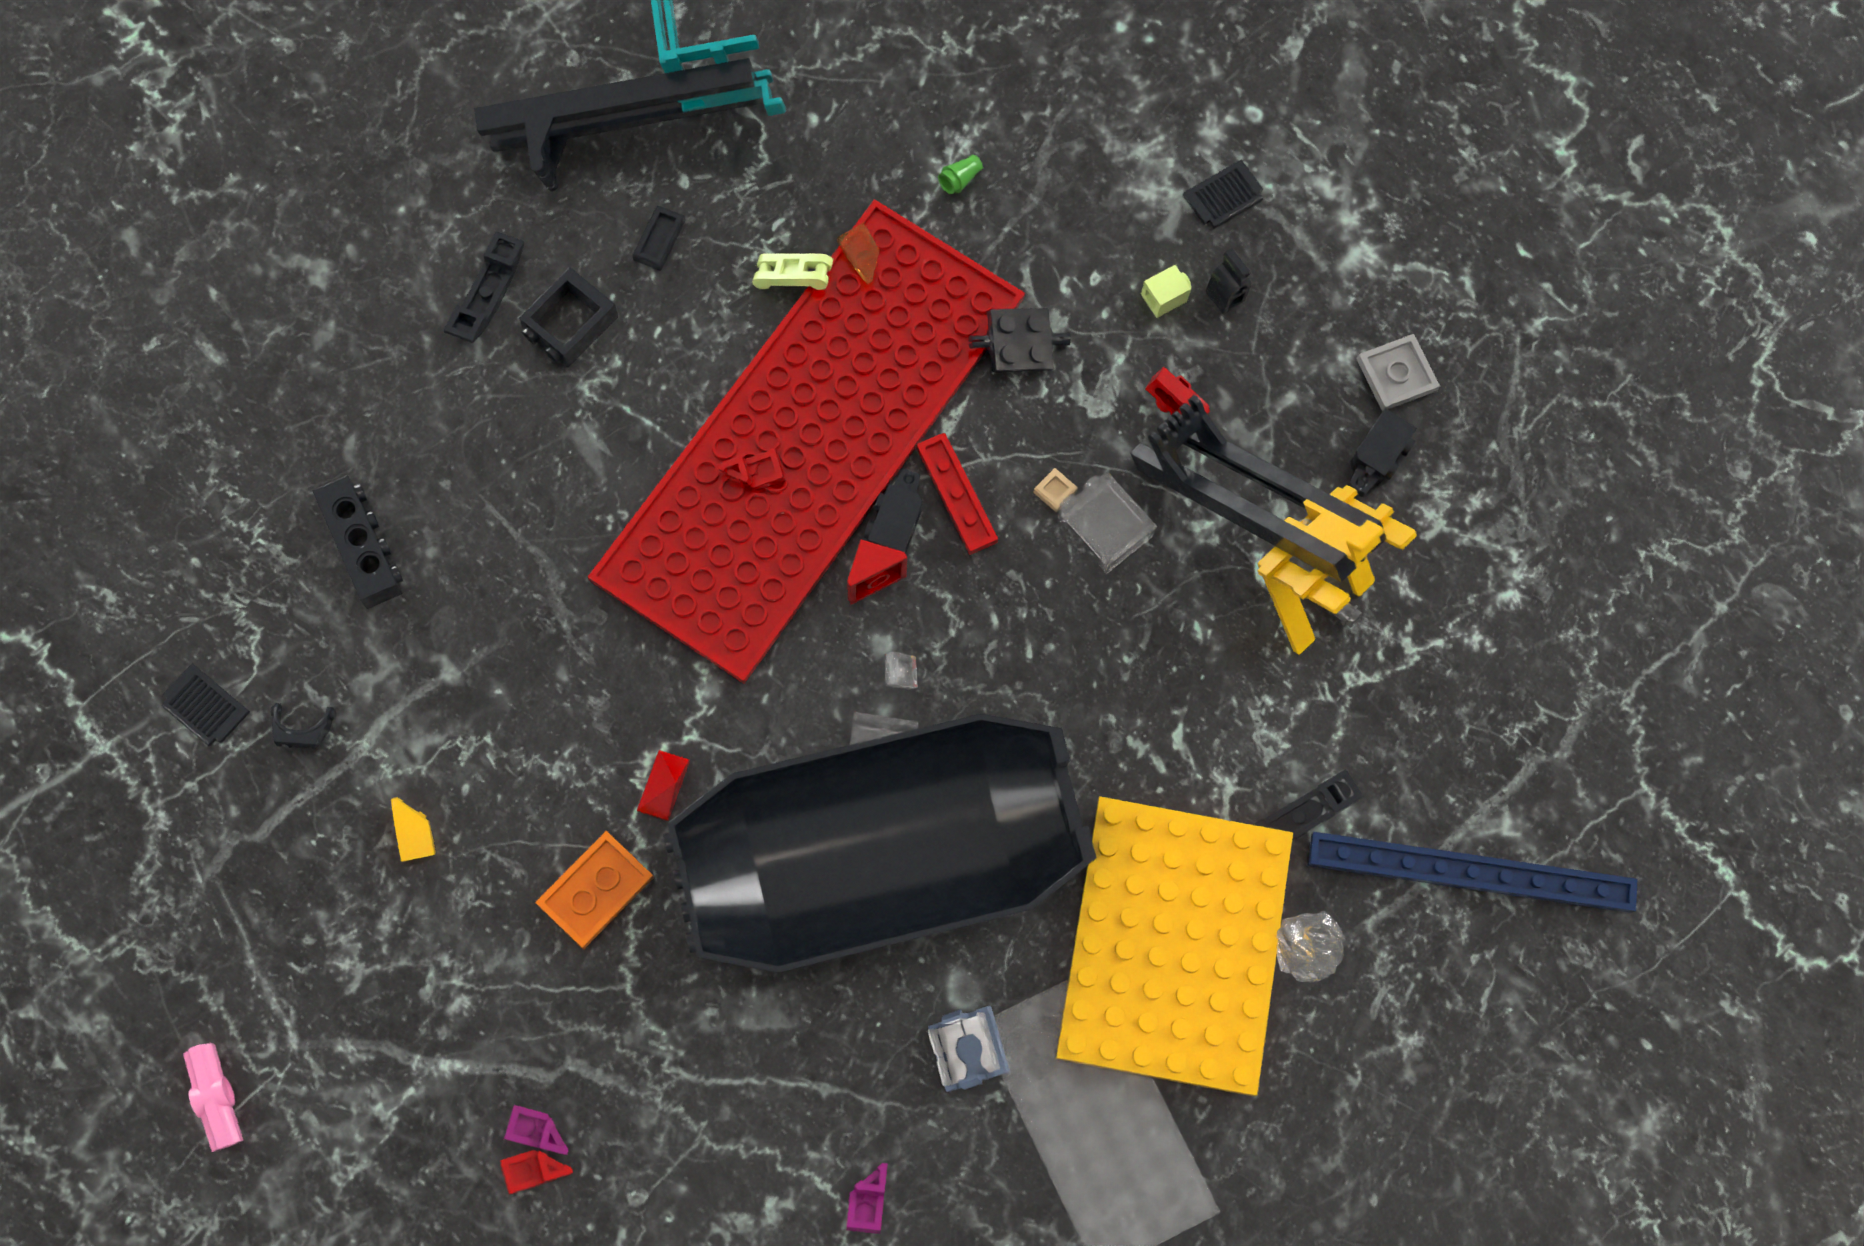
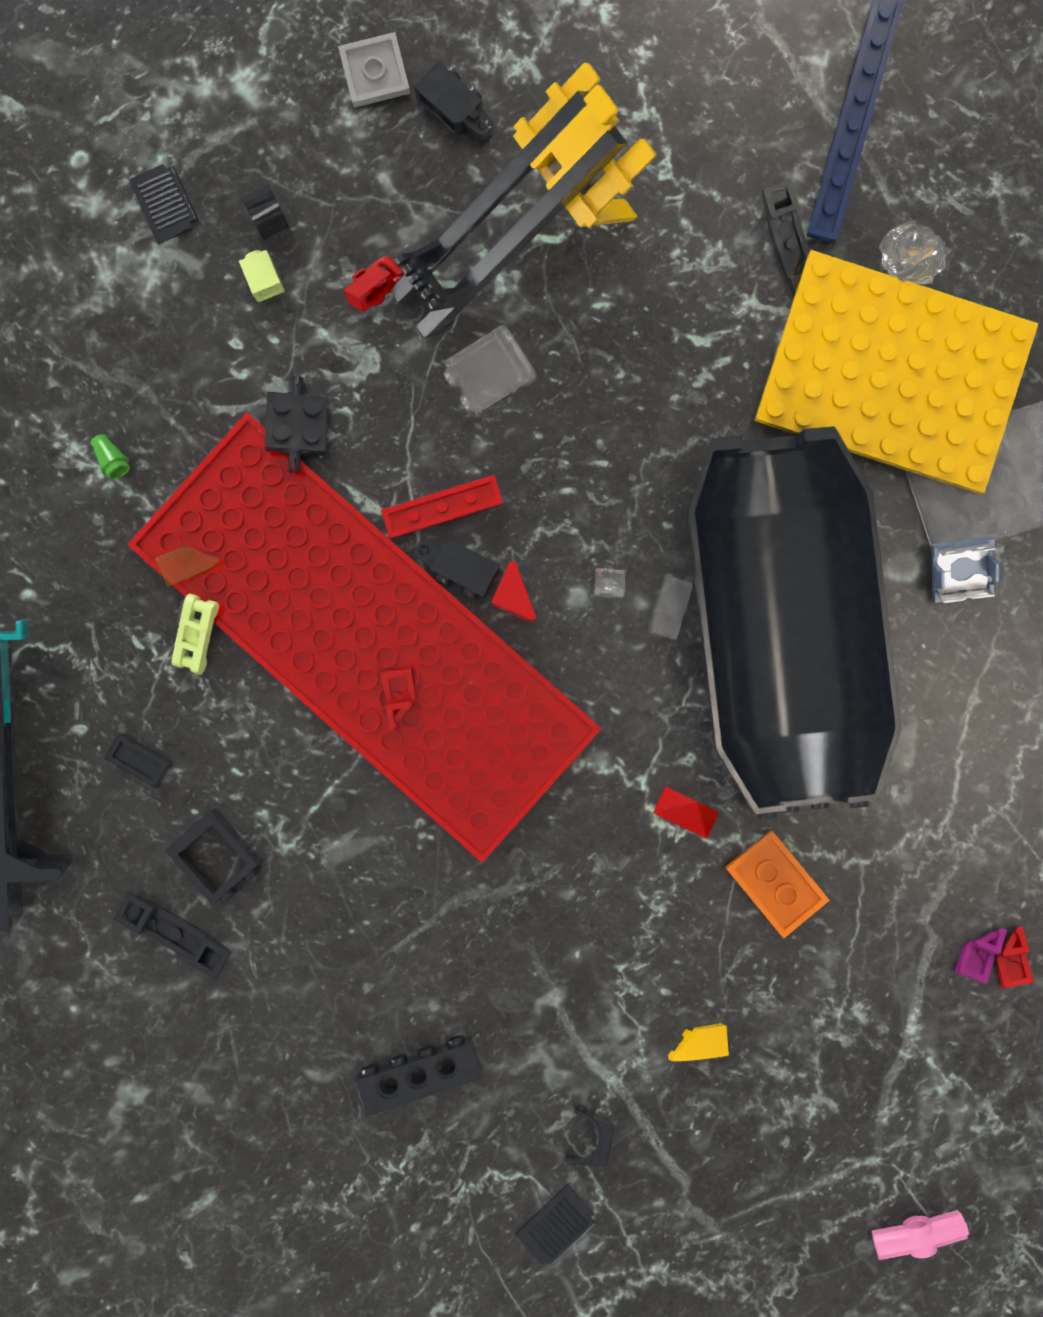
camera: 75 degrees left, 15 degrees up
(1054, 489) = (449, 414): tan tile -> none

